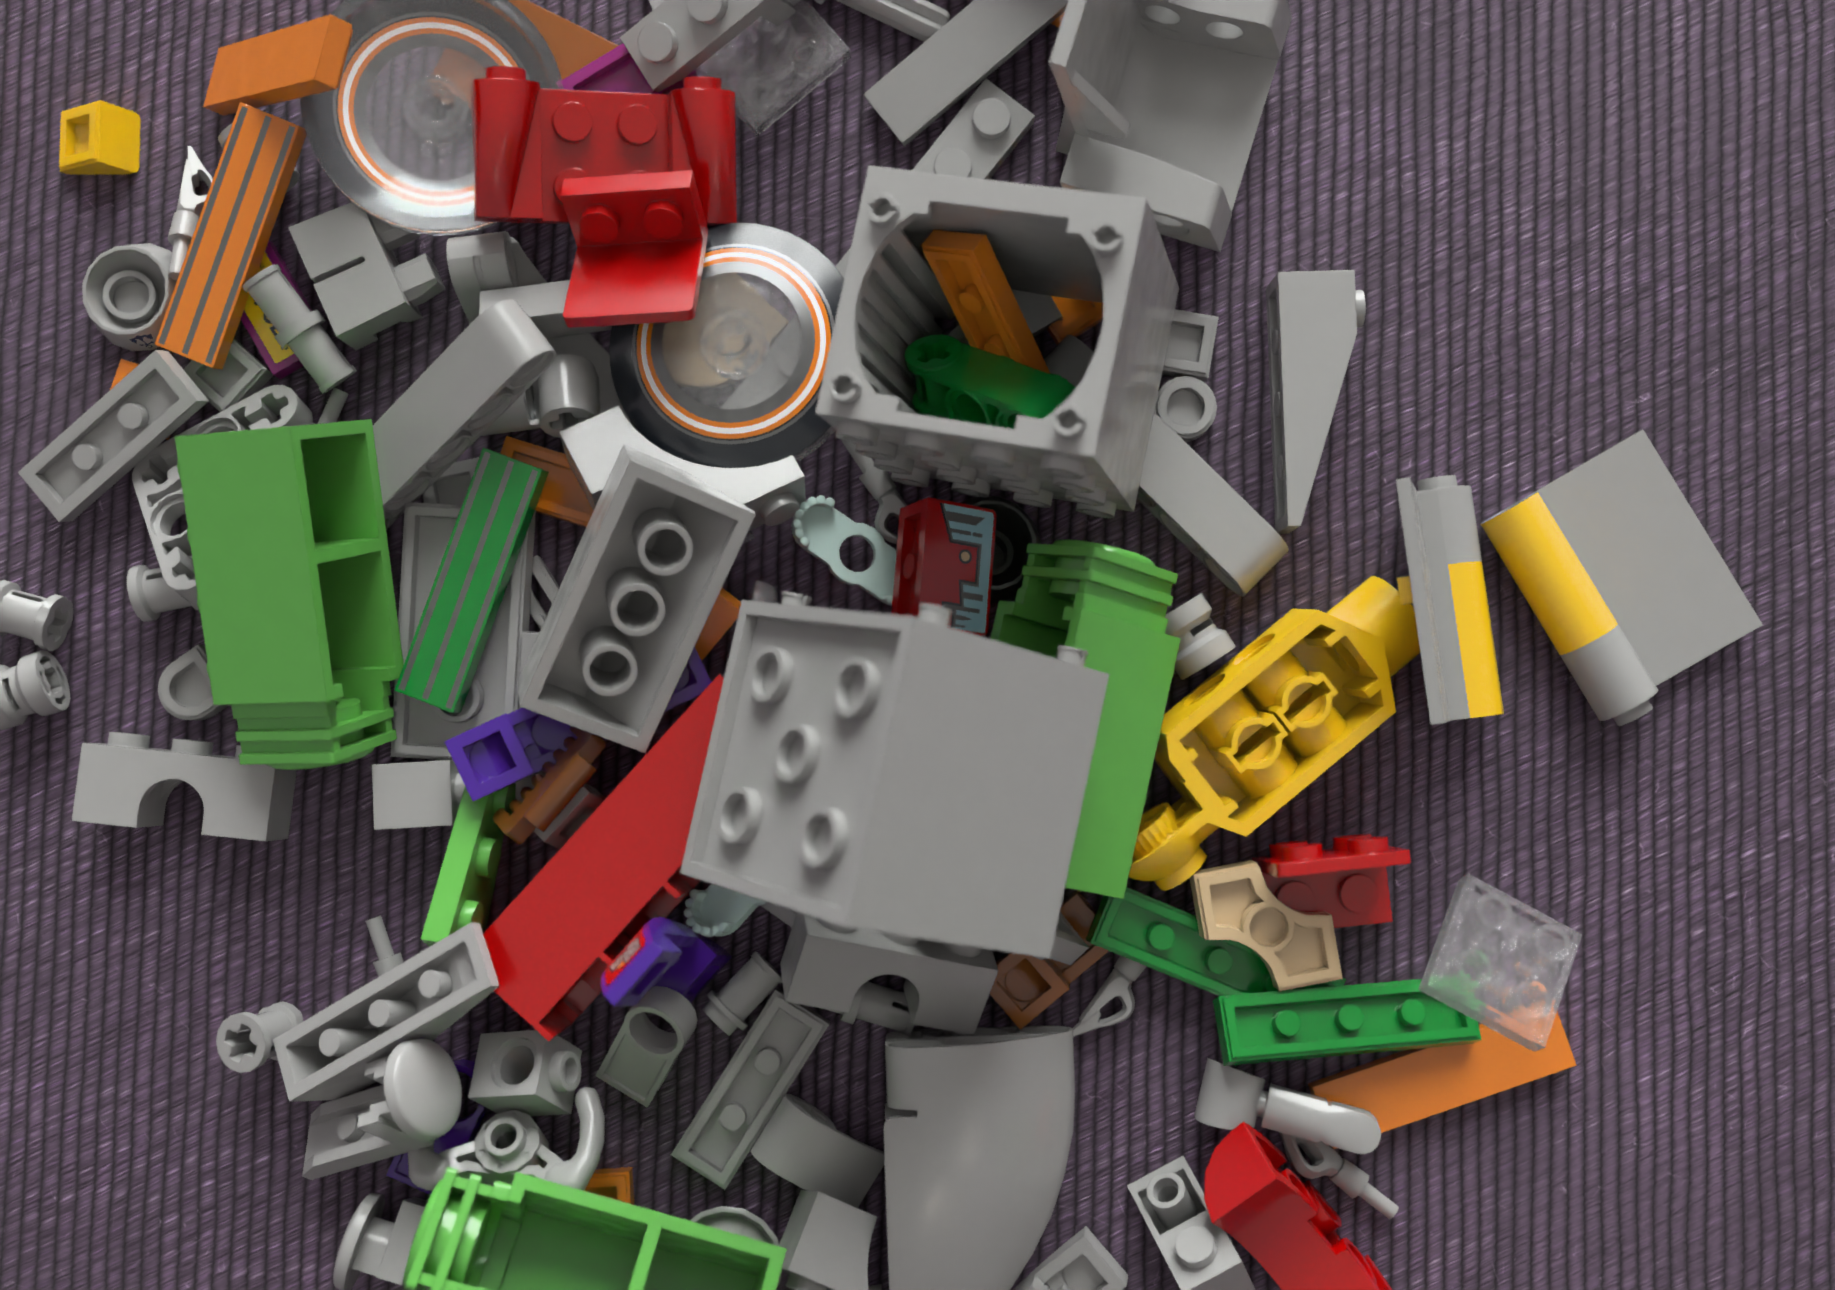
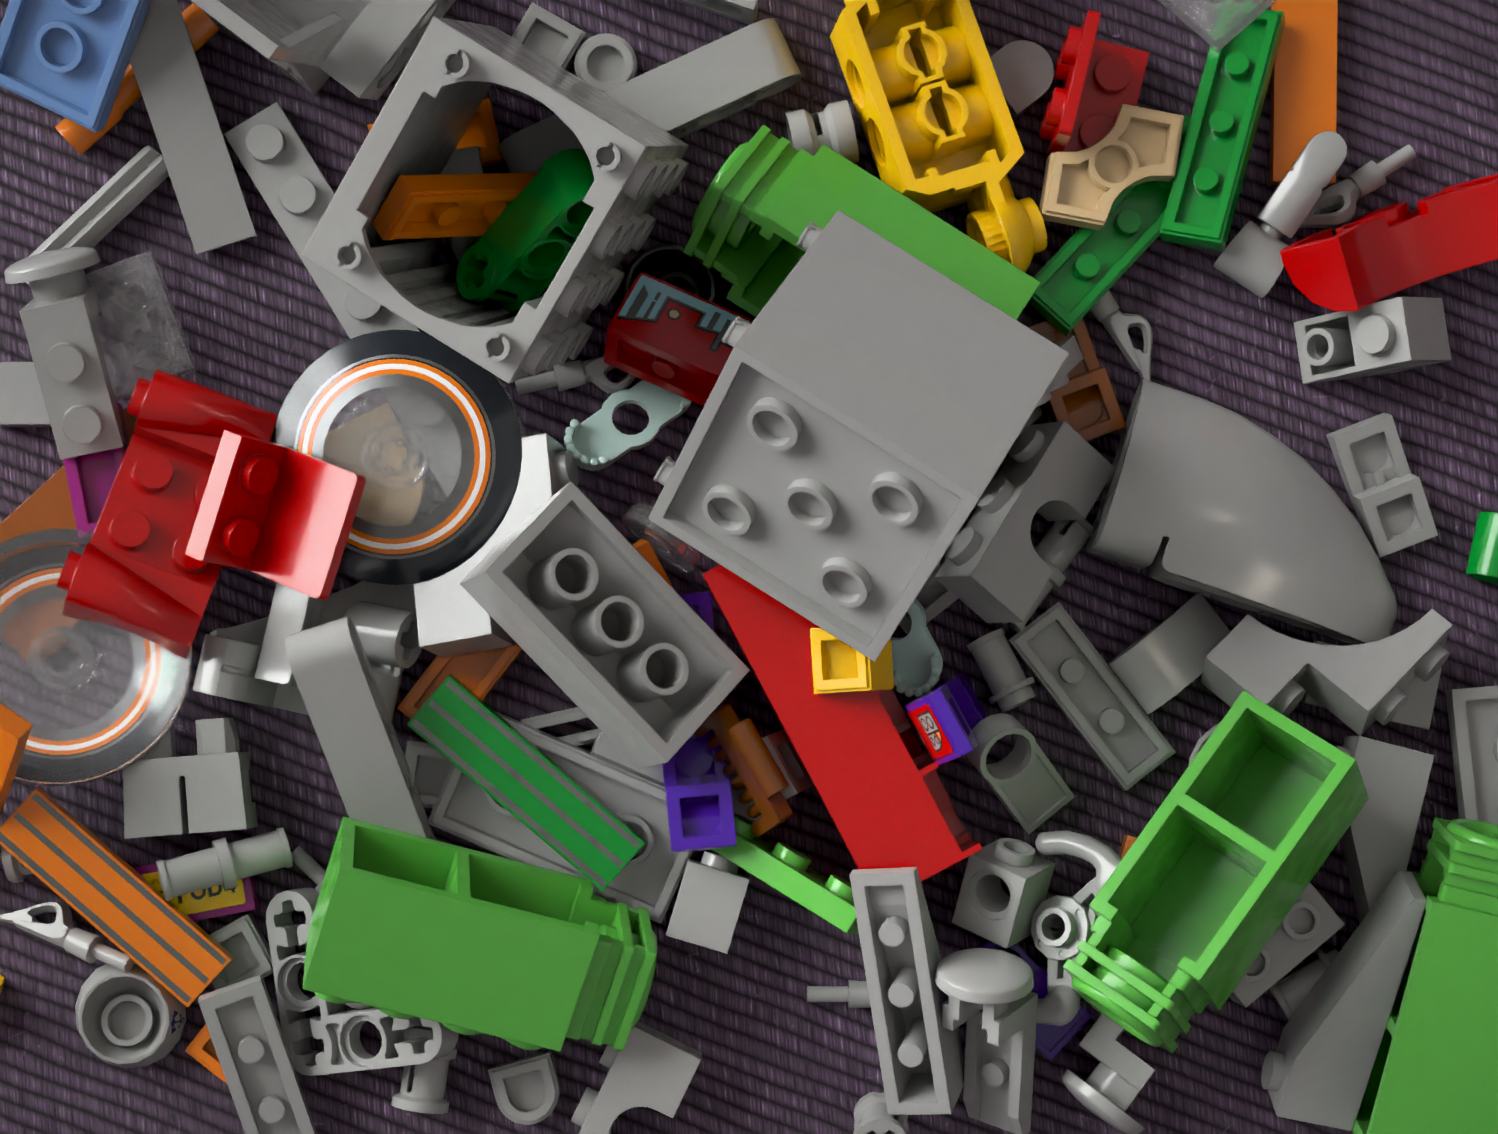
camera: 70 degrees left, 0 degrees up
(666, 843) = (844, 669): none -> yellow slope
(1325, 806) = (1023, 74): none -> light grey tile

